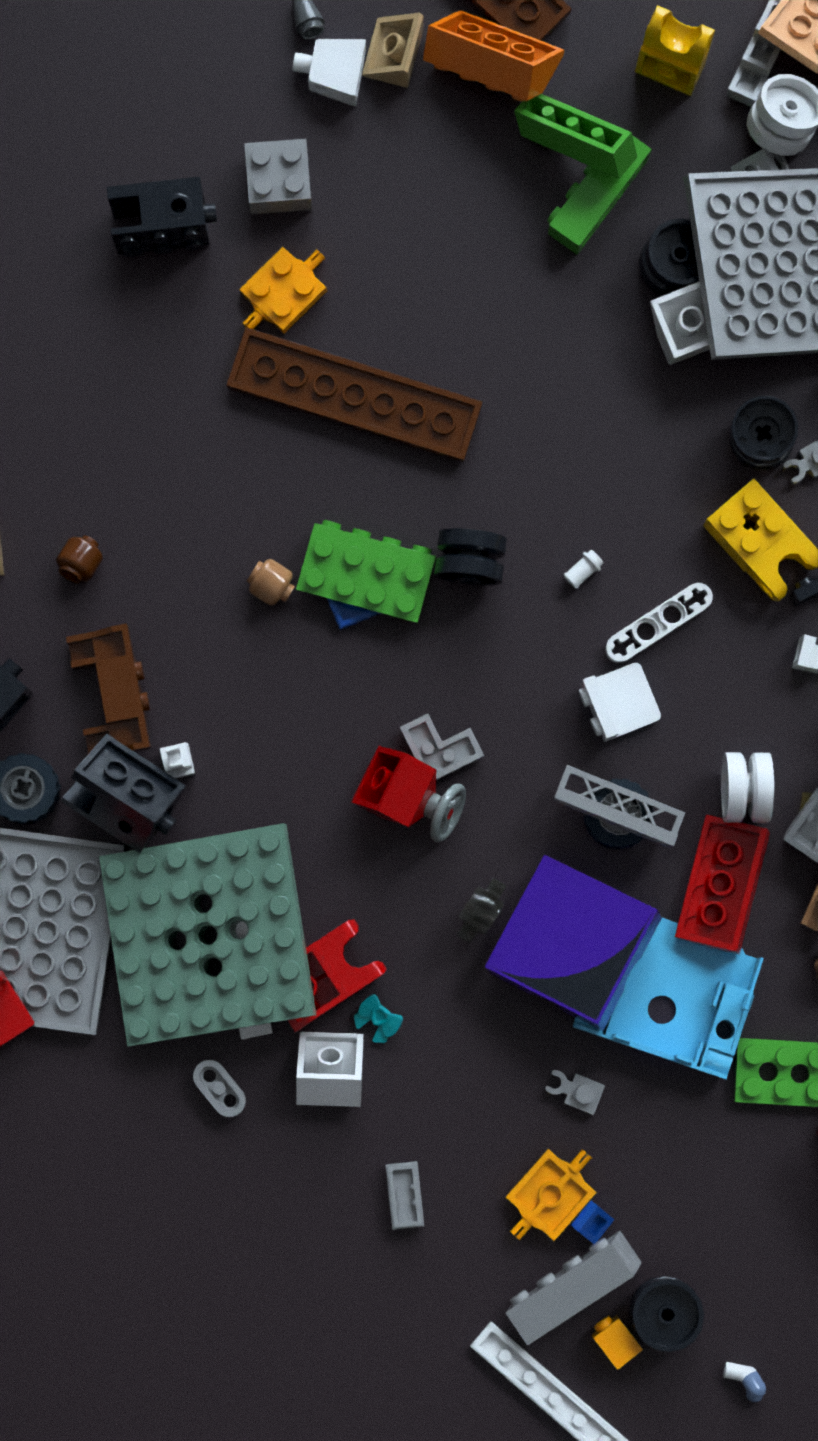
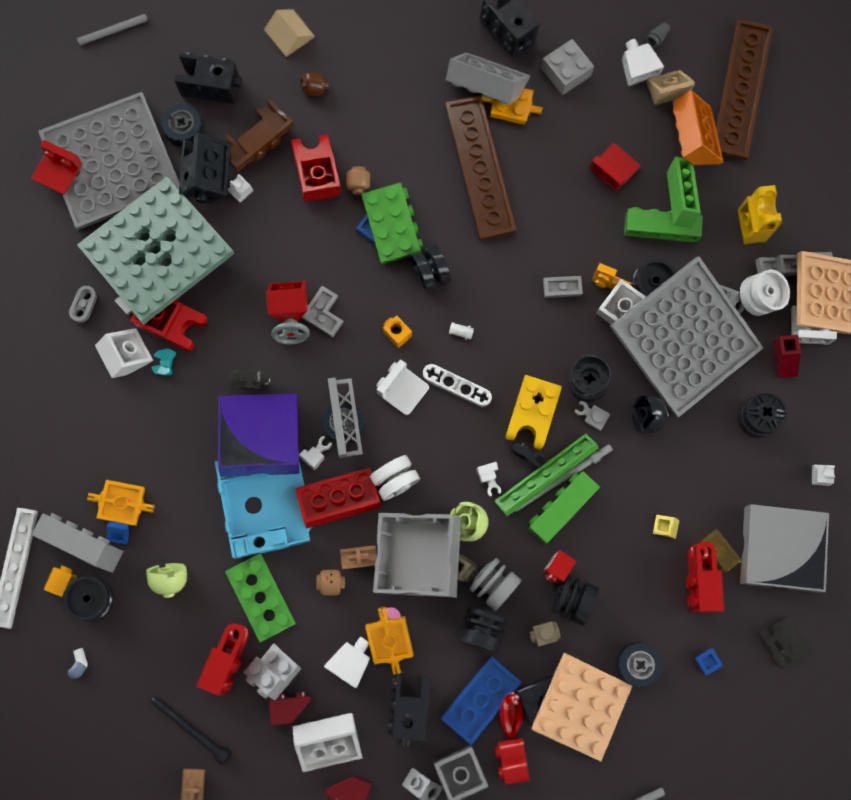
camera: 55 degrees right, 5 degrees down
(207, 628) = (316, 170): none -> red brick
(227, 302) = (486, 78): none -> light grey slope
(404, 1195) = (79, 428): light grey plate -> none
(471, 203) = (614, 167): none -> red bracket
(541, 650) = (397, 339): none -> light orange brick
(581, 1092) = (184, 487): light grey plate -> none
(604, 387) = (562, 286): none -> light grey plate
(627, 321) = (605, 277): none -> light orange plate
(645, 884) = (314, 456): none -> white piece
(701, 1187) = (167, 579): none -> yellowish green cylinder

